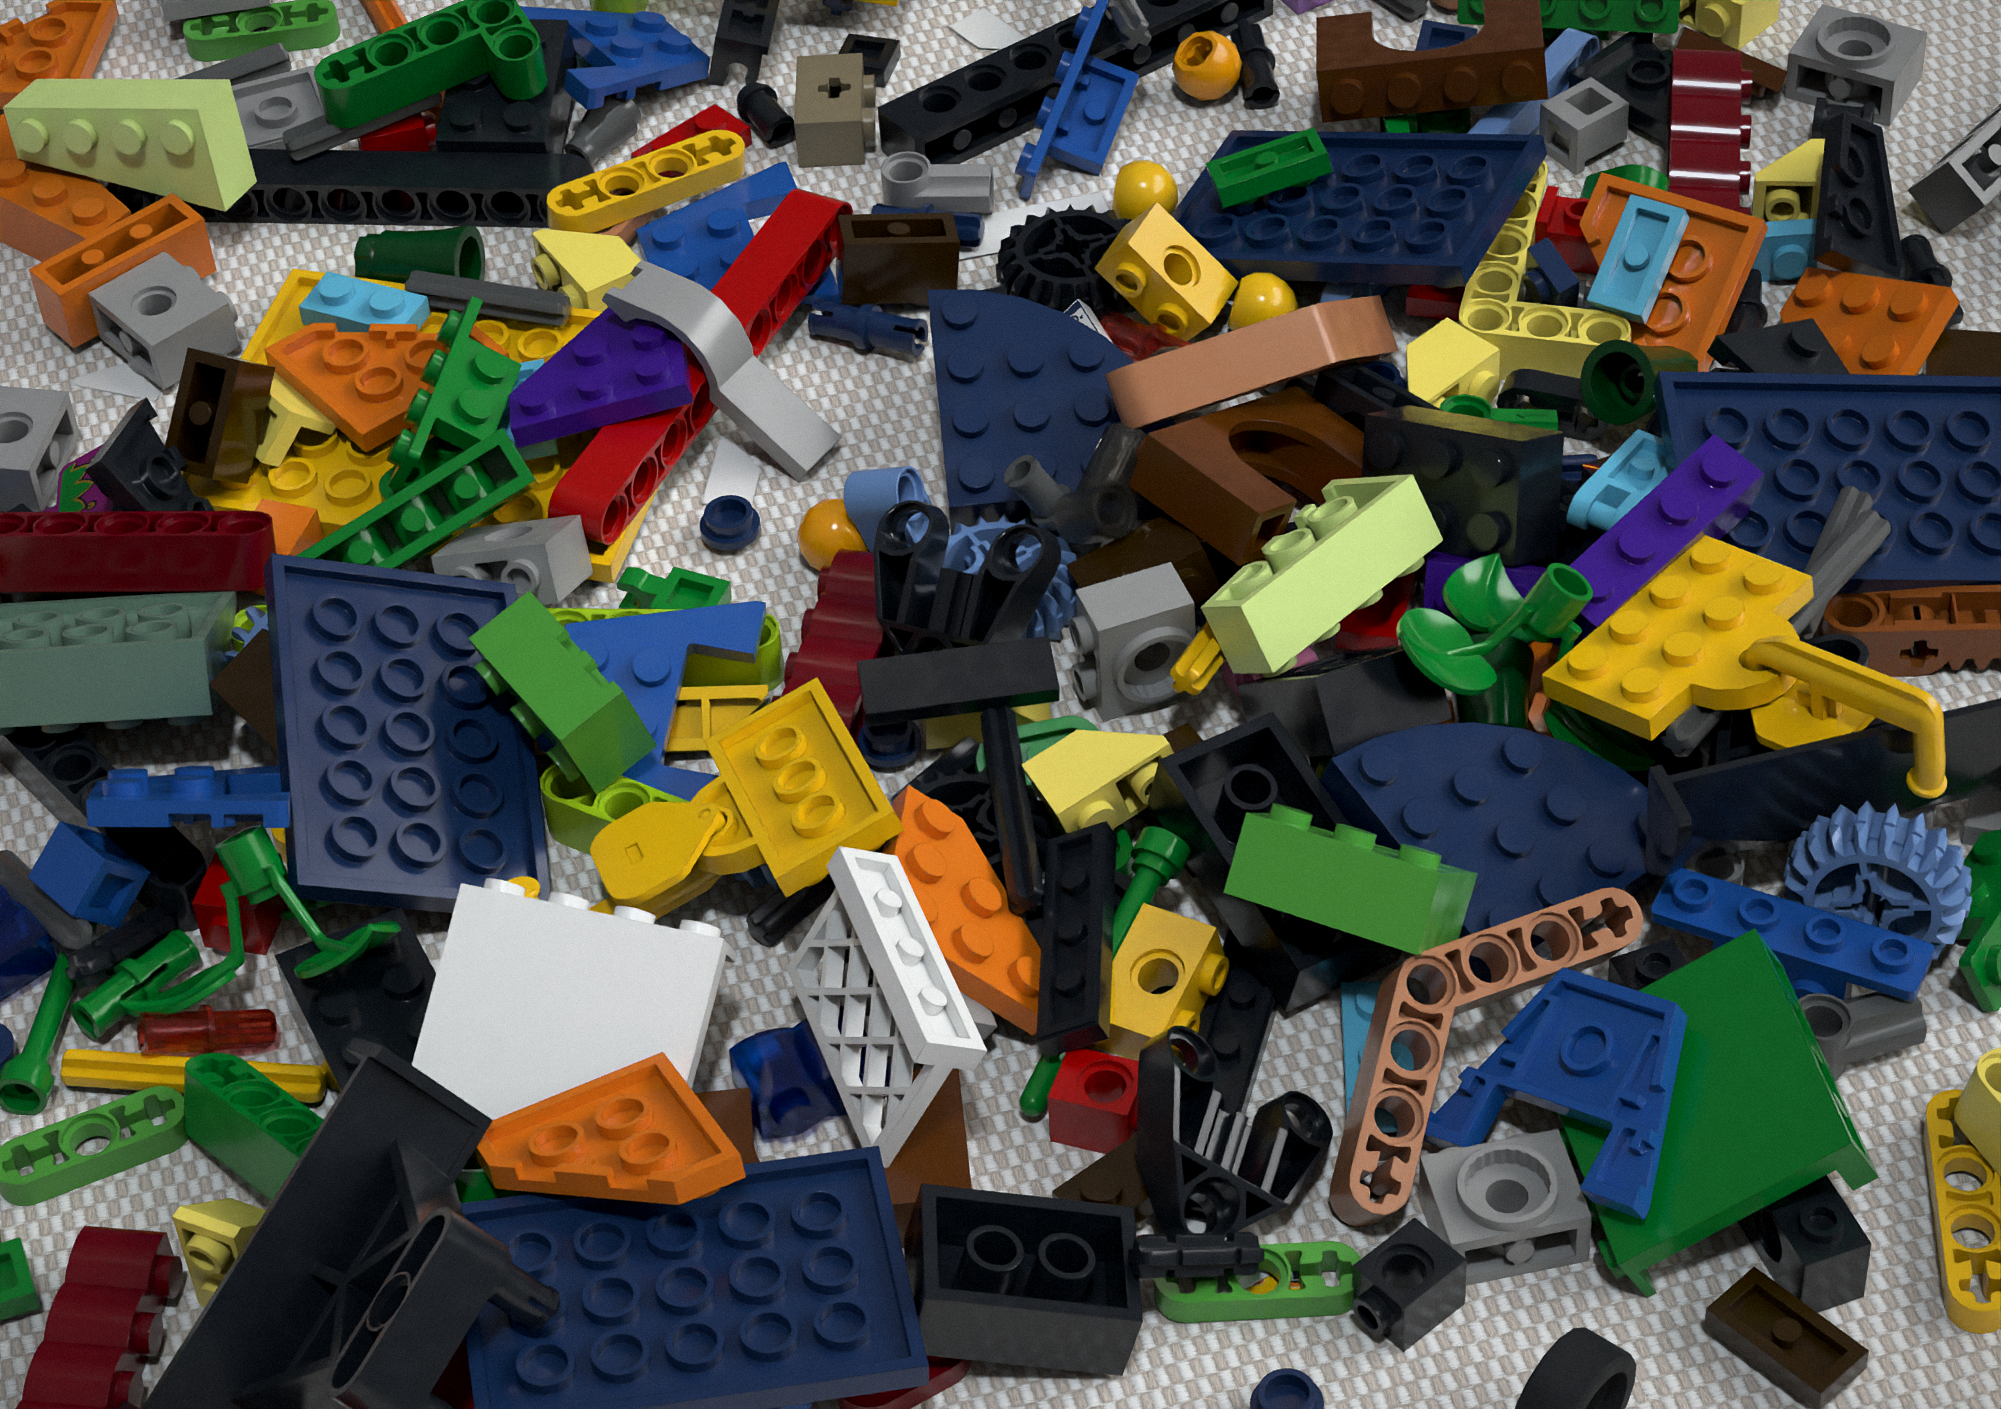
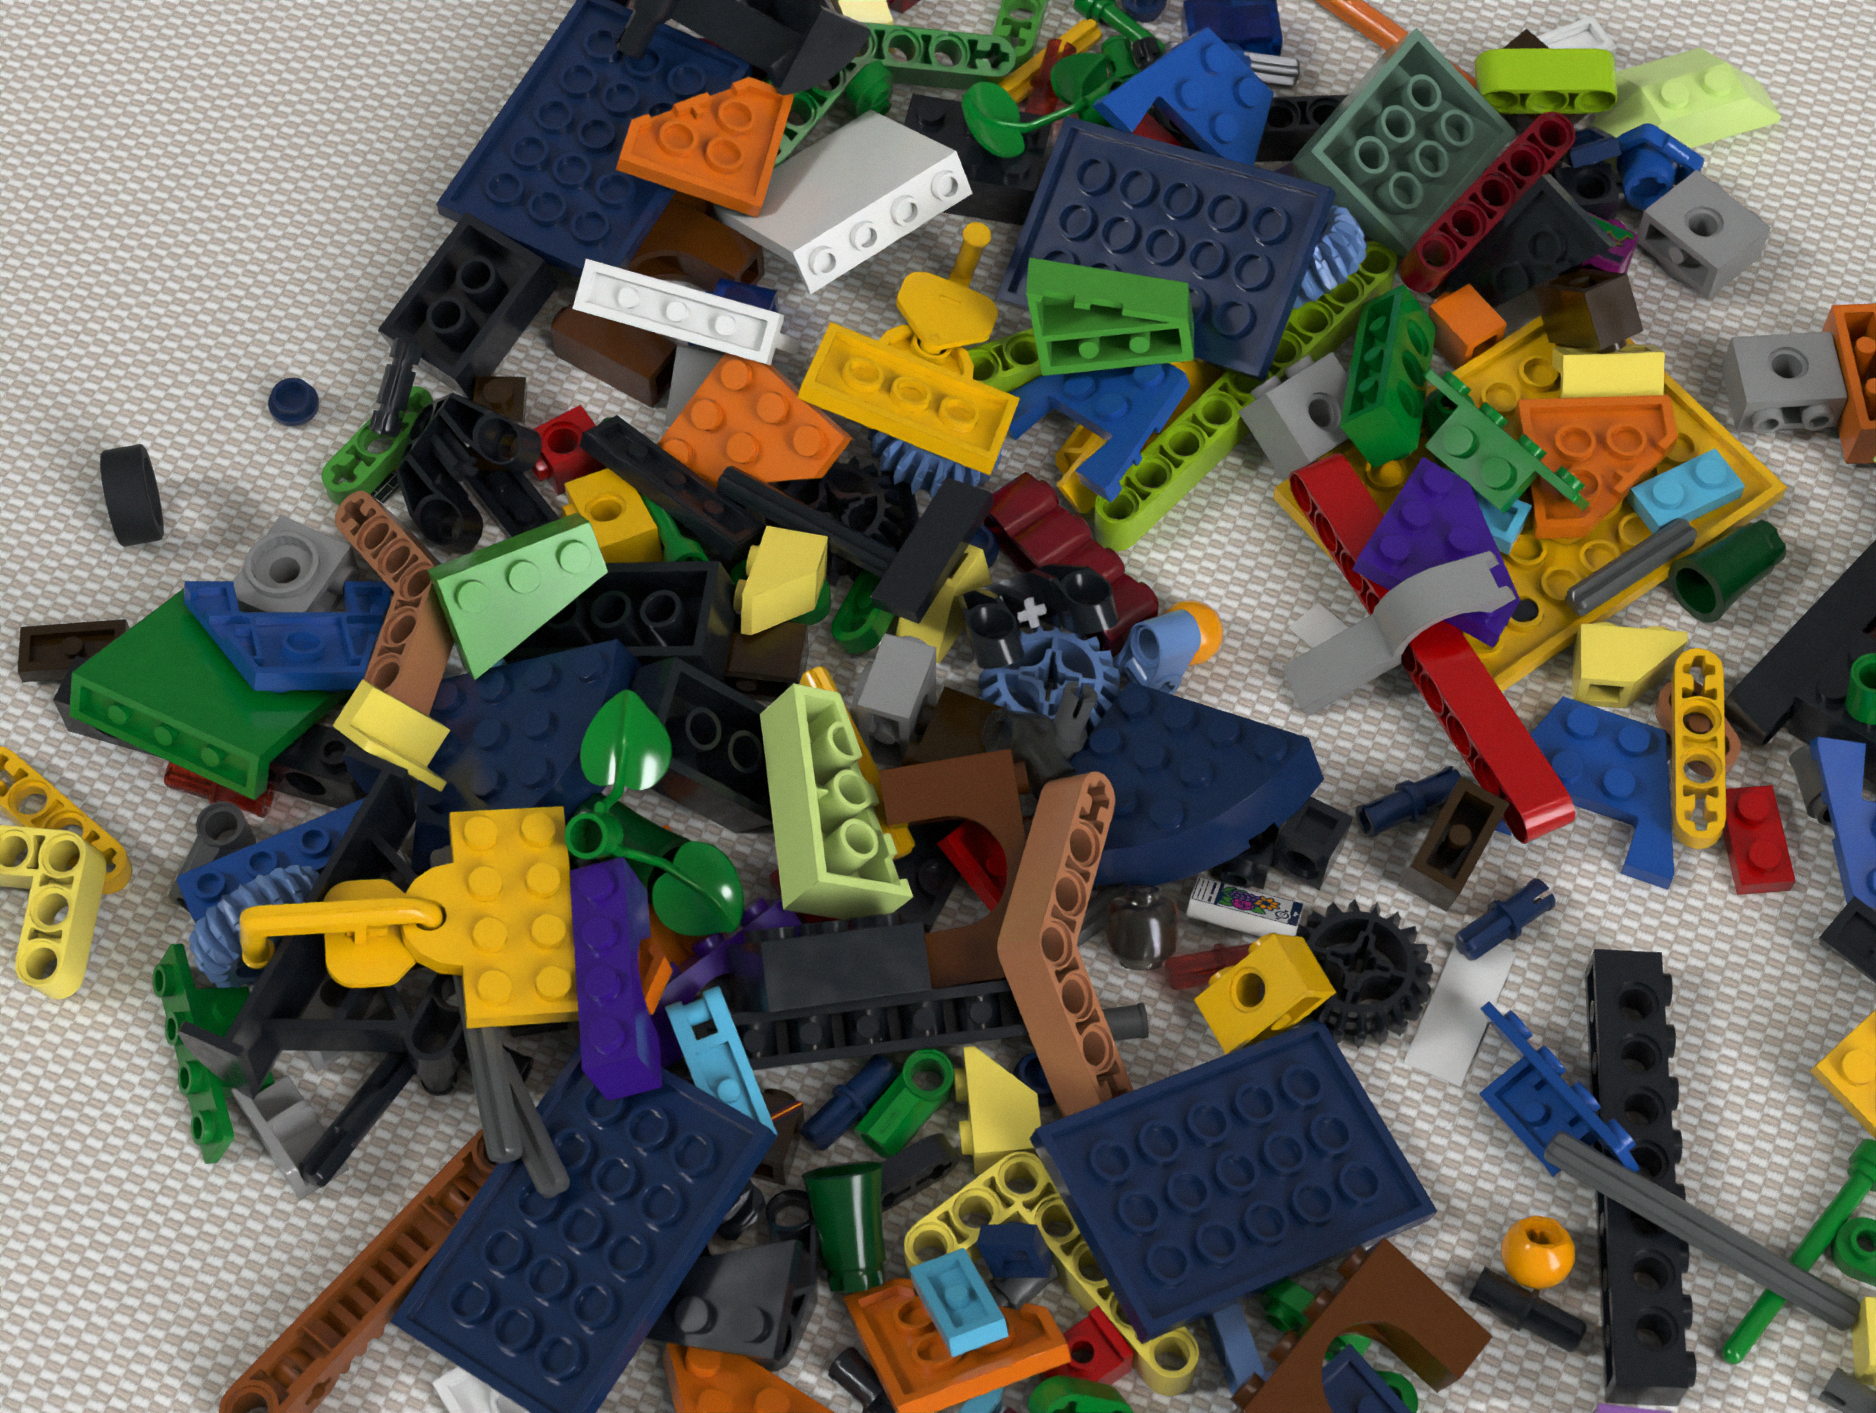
camera: 125 degrees right, 15 degrees up
(679, 591) = (1211, 515): green plate -> none
(729, 523) = (1268, 591): dark blue plate -> none
(759, 106) = (1753, 909): black pin -> none
(832, 110) = (1739, 948): dark tan brick -> none
(879, 55) = (1781, 1037): black tile -> none
(913, 181) = (1538, 951): light grey piece -> none
(986, 30) = (1755, 1163): white sticker -> none
(1141, 186) = (1403, 1082): yellow piece -> none
(1260, 298) = (1183, 1048): yellow piece -> none
(1268, 168) = (1318, 1144): green plate -> none
(1408, 1285) = (295, 479): black brick -> none
(1625, 856) = (393, 731): none -> light yellow panel

